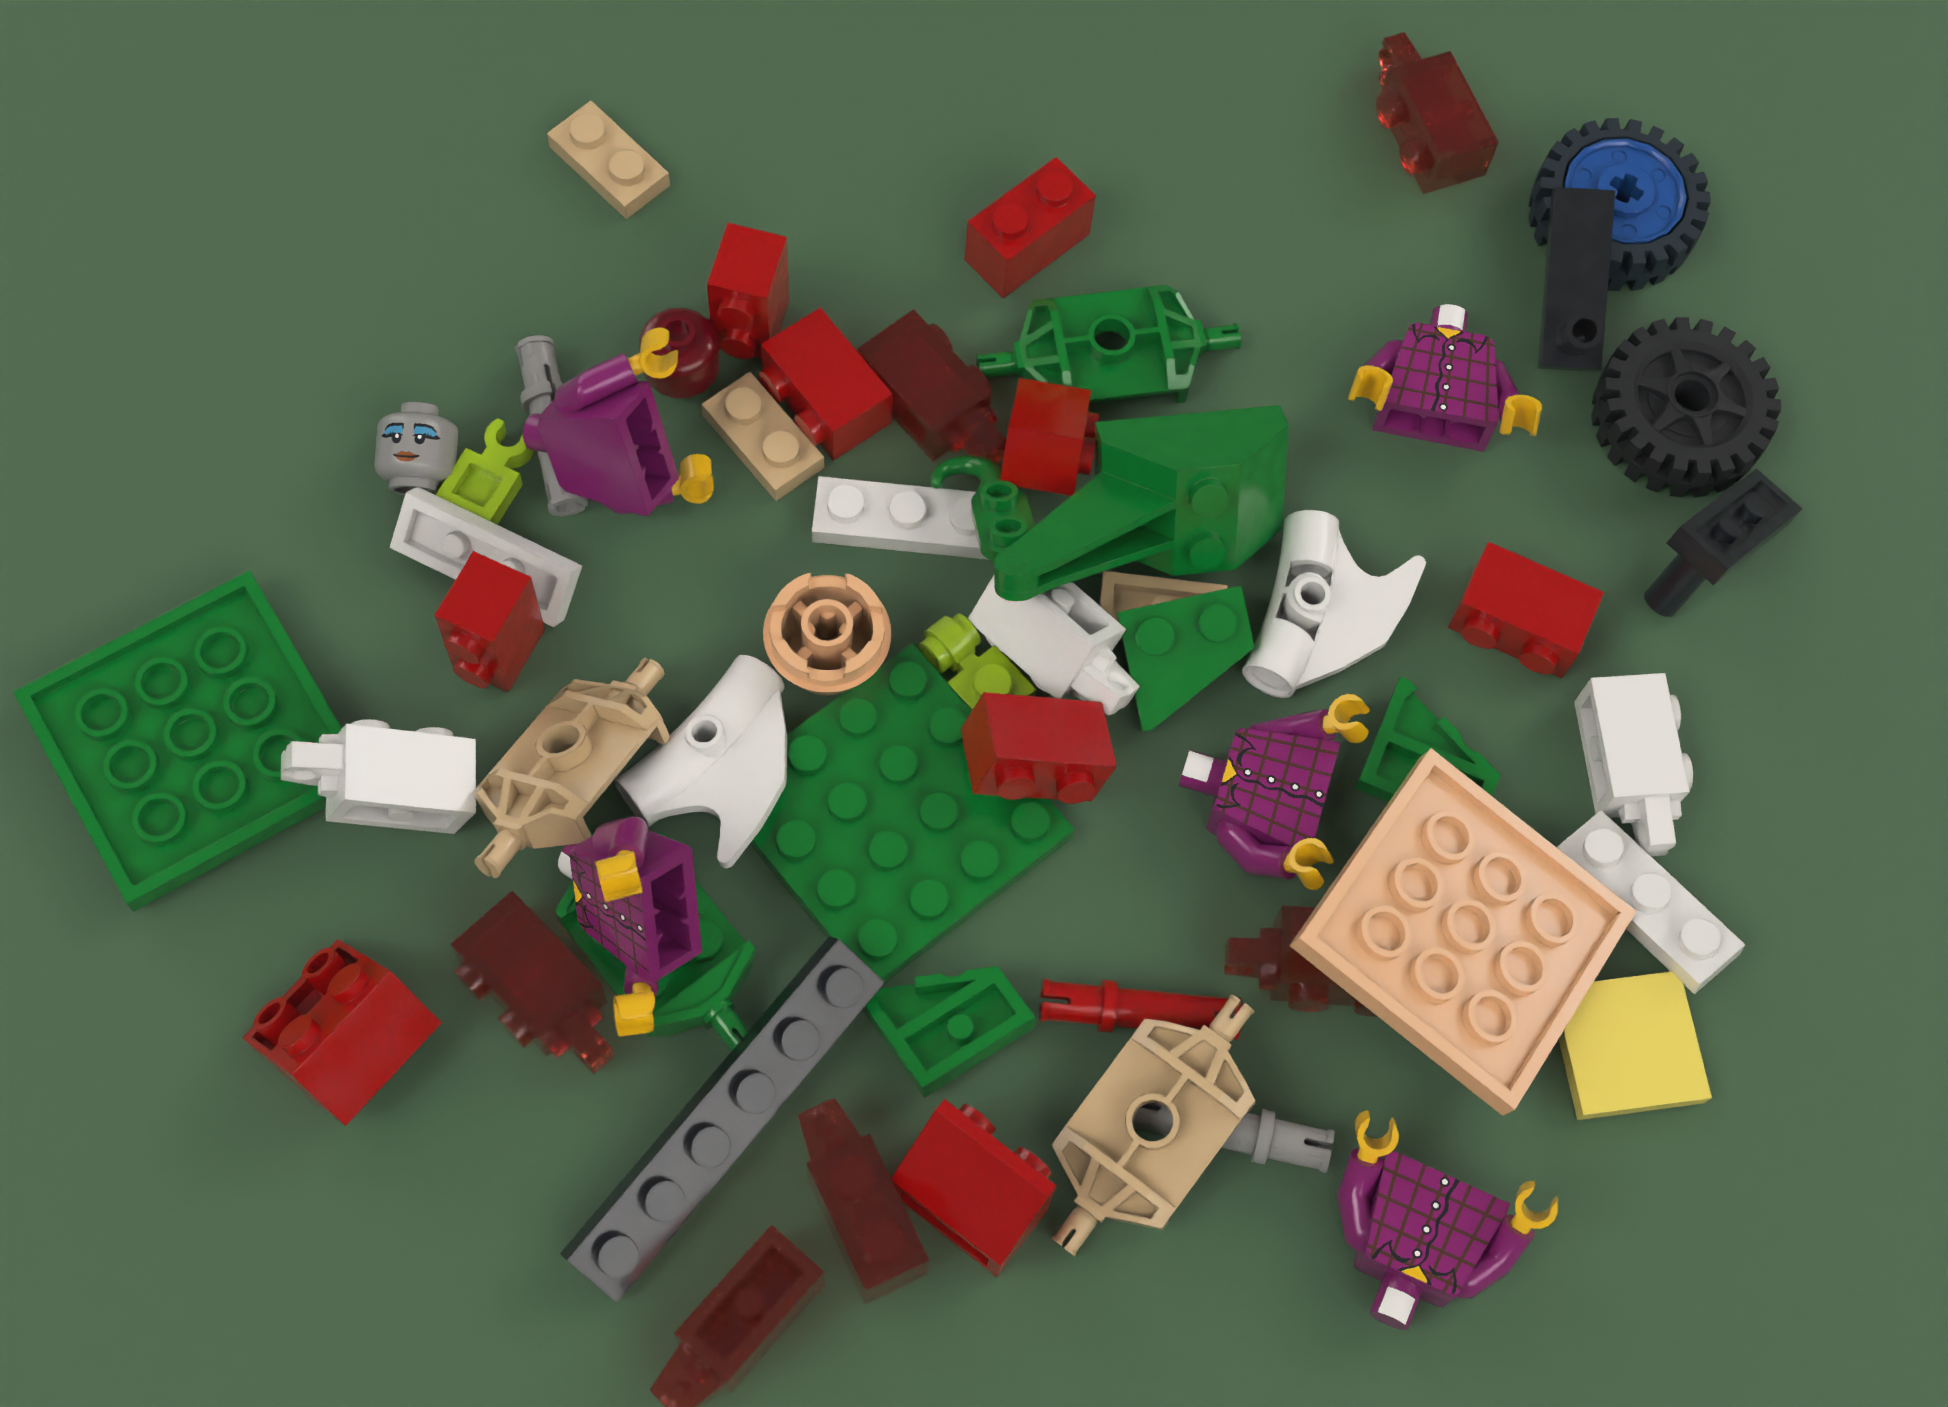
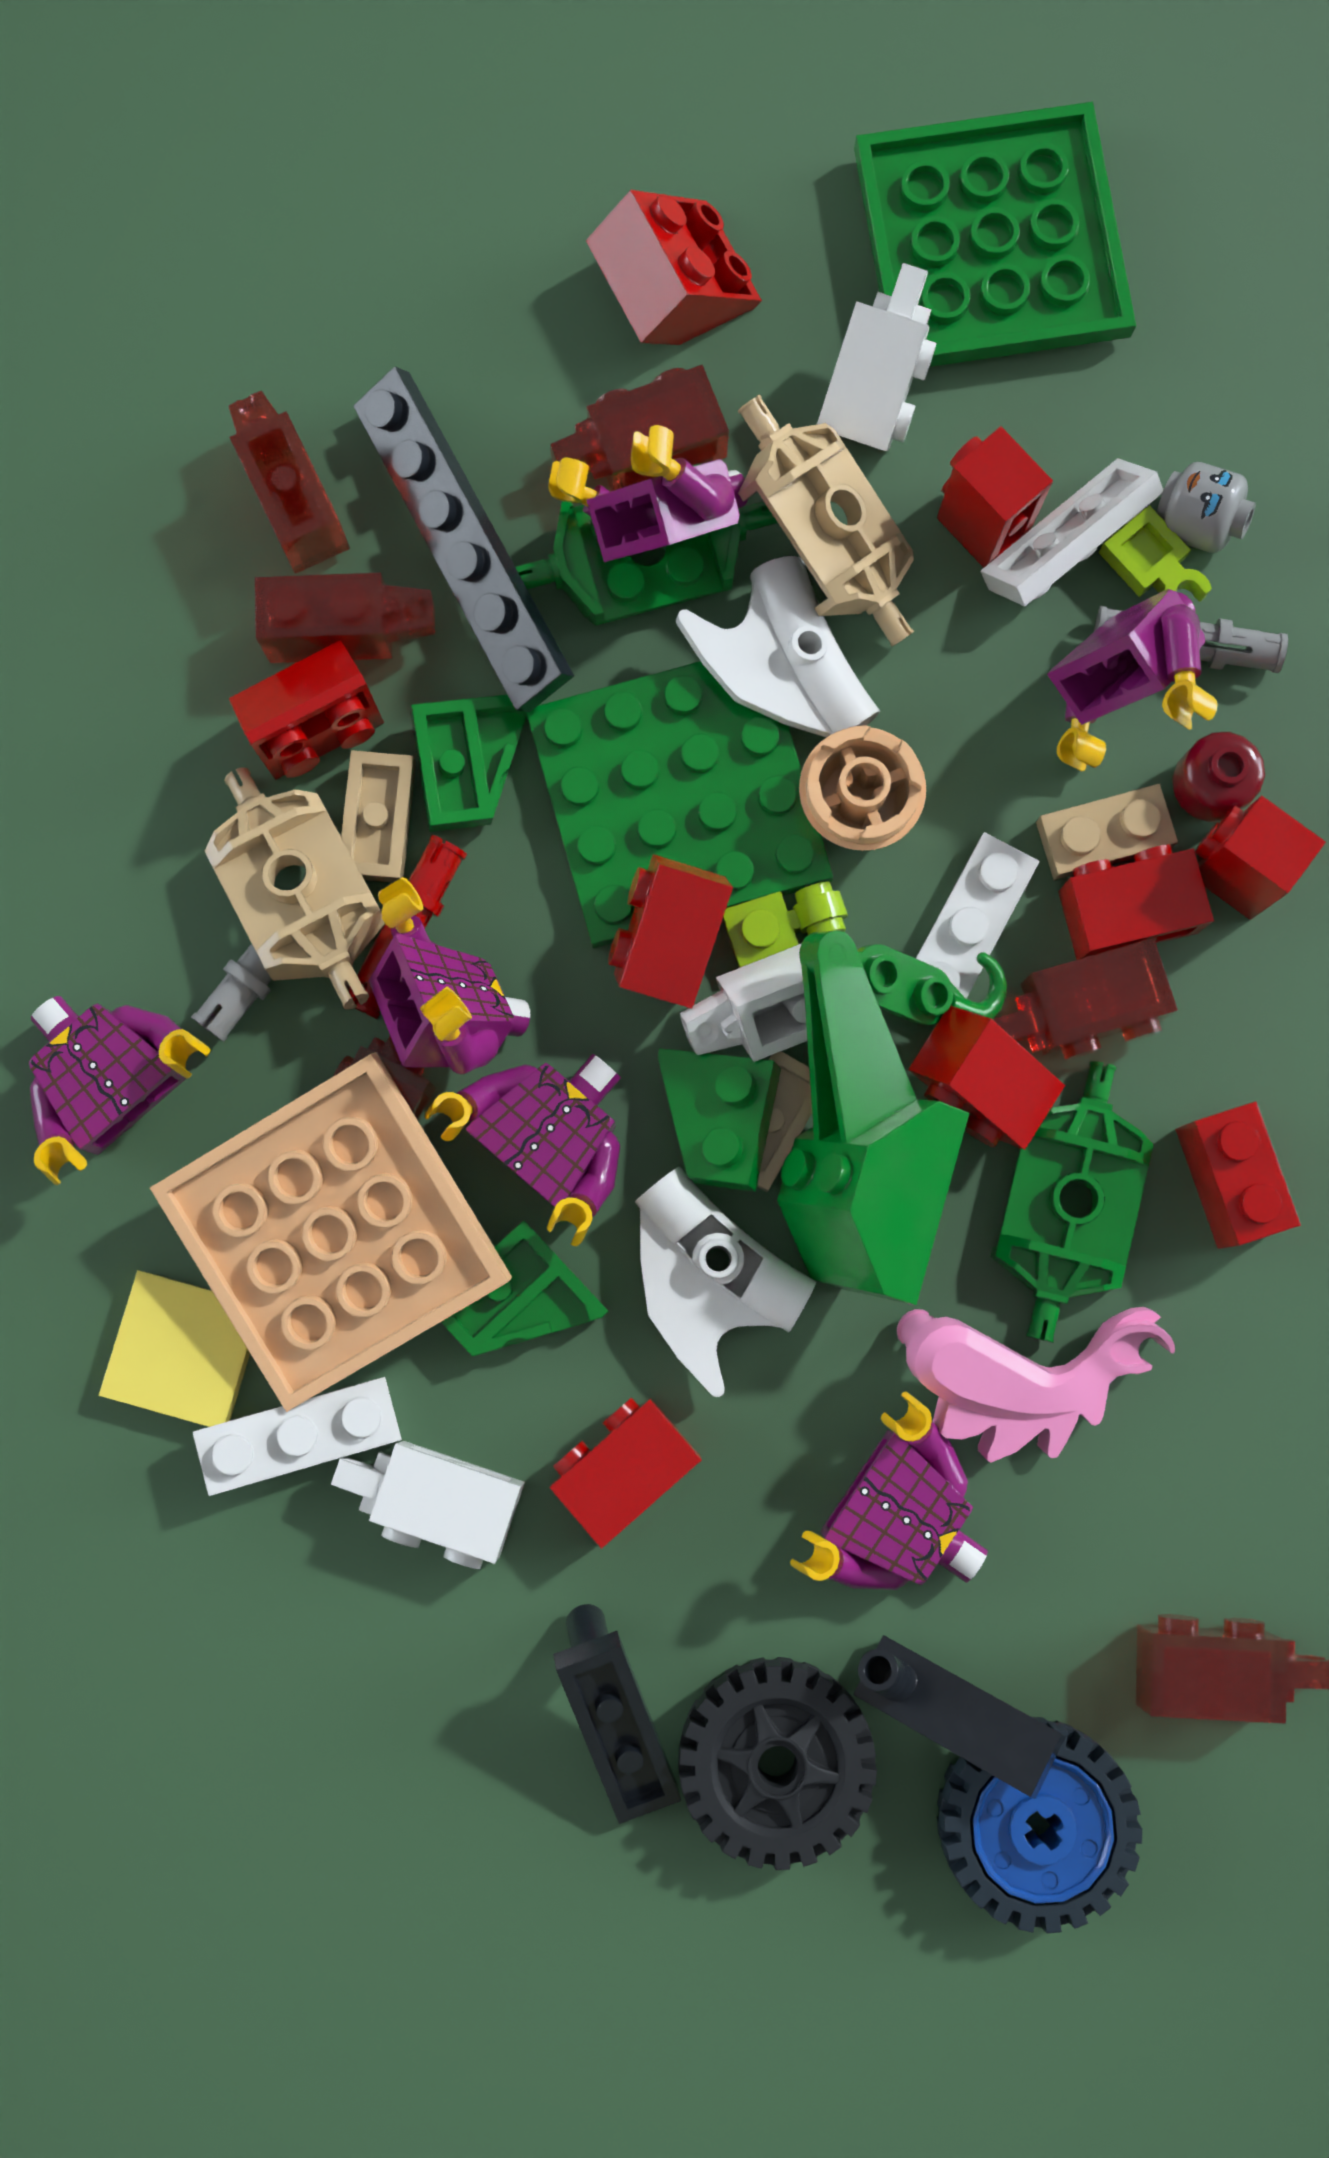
camera: 120 degrees right, 15 degrees up
(1040, 1081) = (378, 813): none -> tan plate
(1203, 924) = (438, 1000): none -> magenta torso
(1304, 341) = (1008, 1395): none -> bright pink animal

